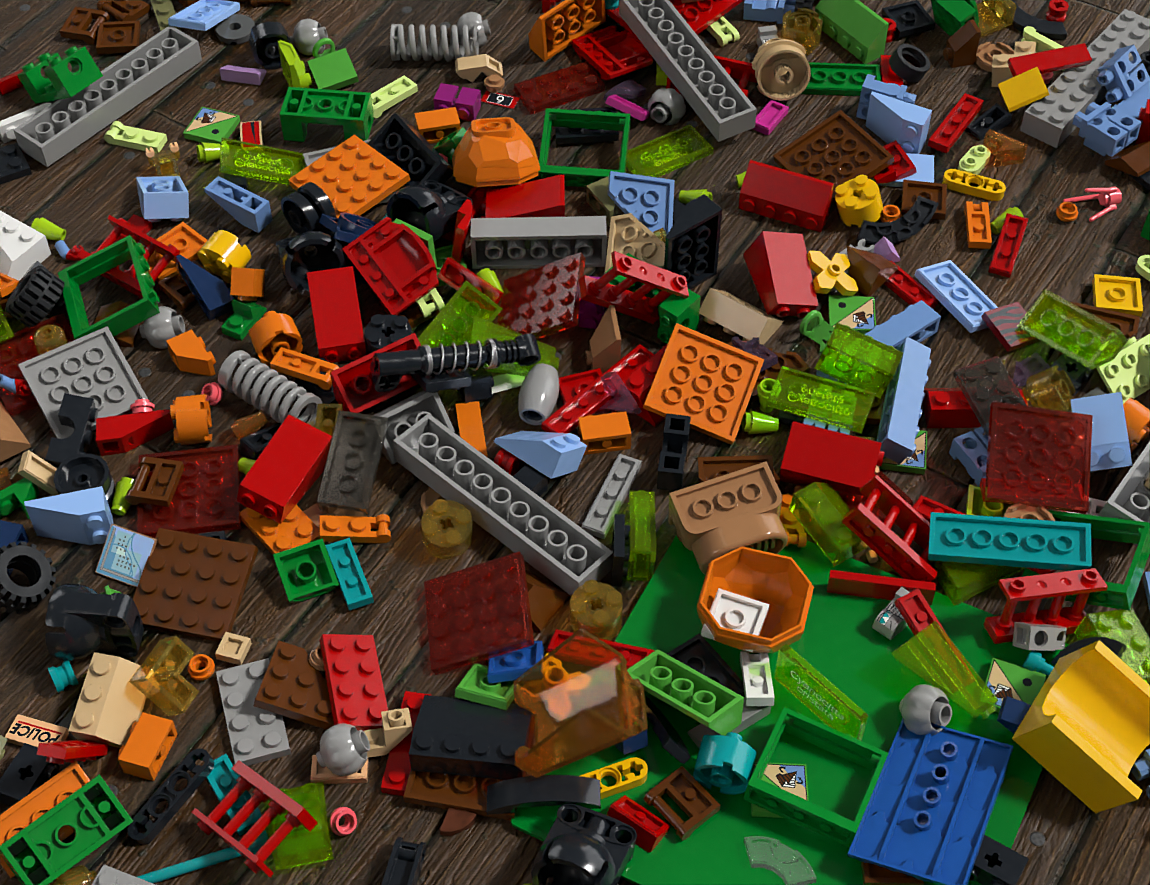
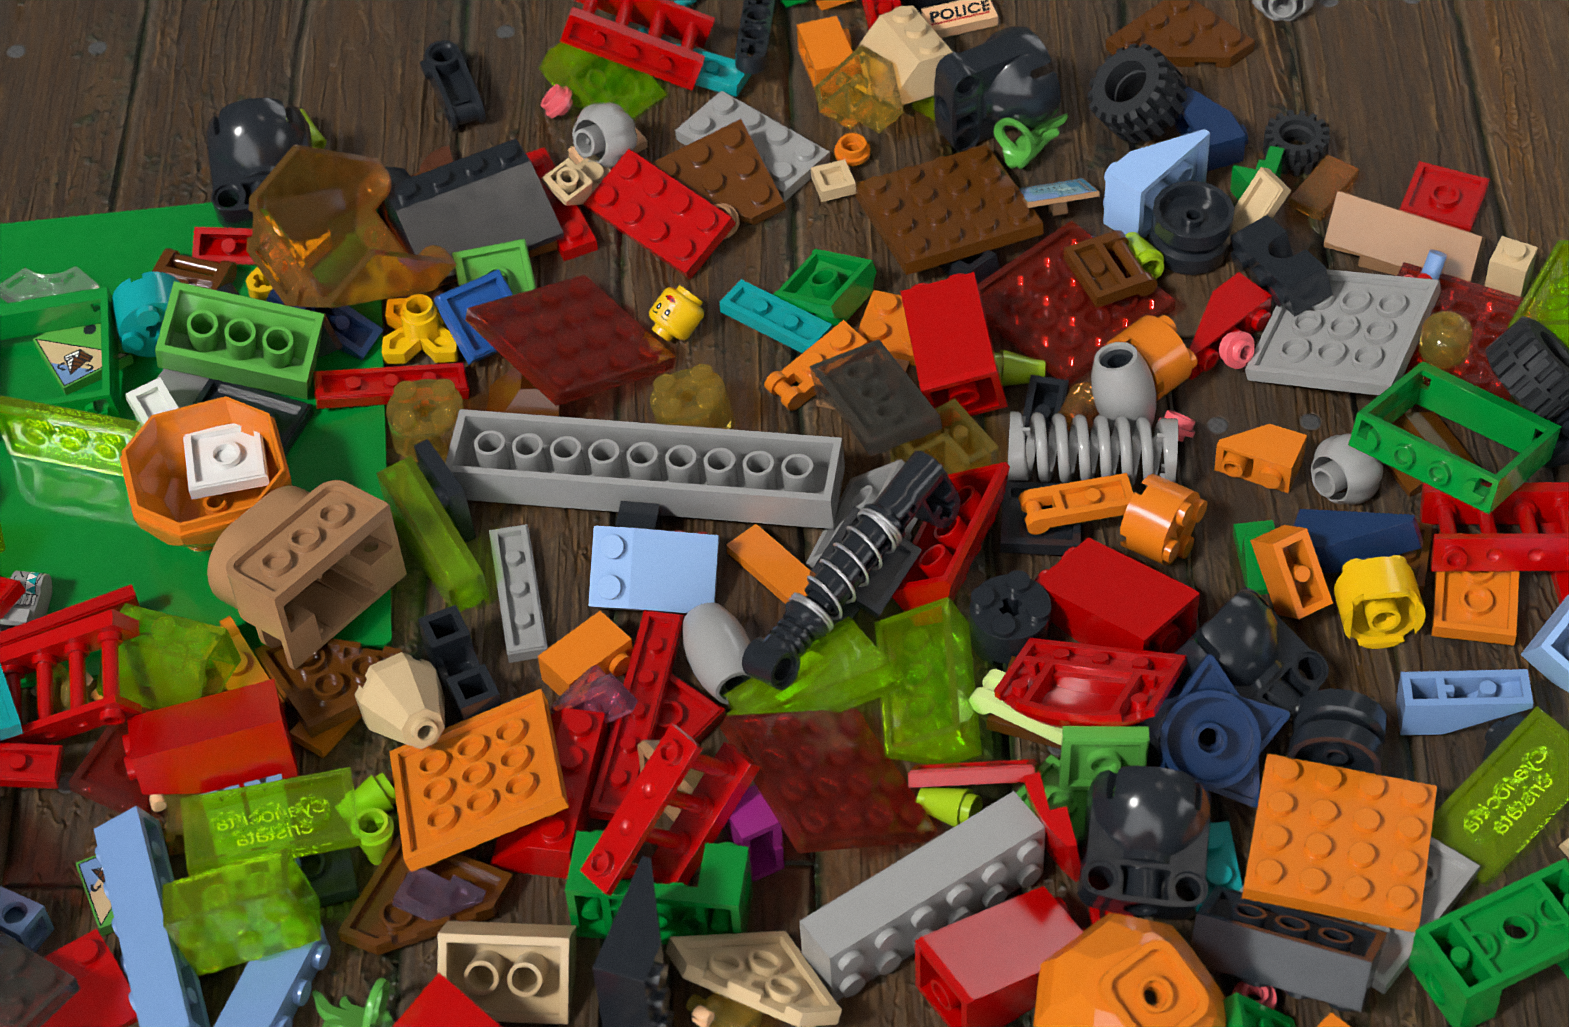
camera: 150 degrees right, 0 degrees up
(226, 400) = (1123, 384): none -> light grey piece
(403, 601) = (676, 313): none -> yellow head
(716, 433) = (403, 700): none -> tan cone

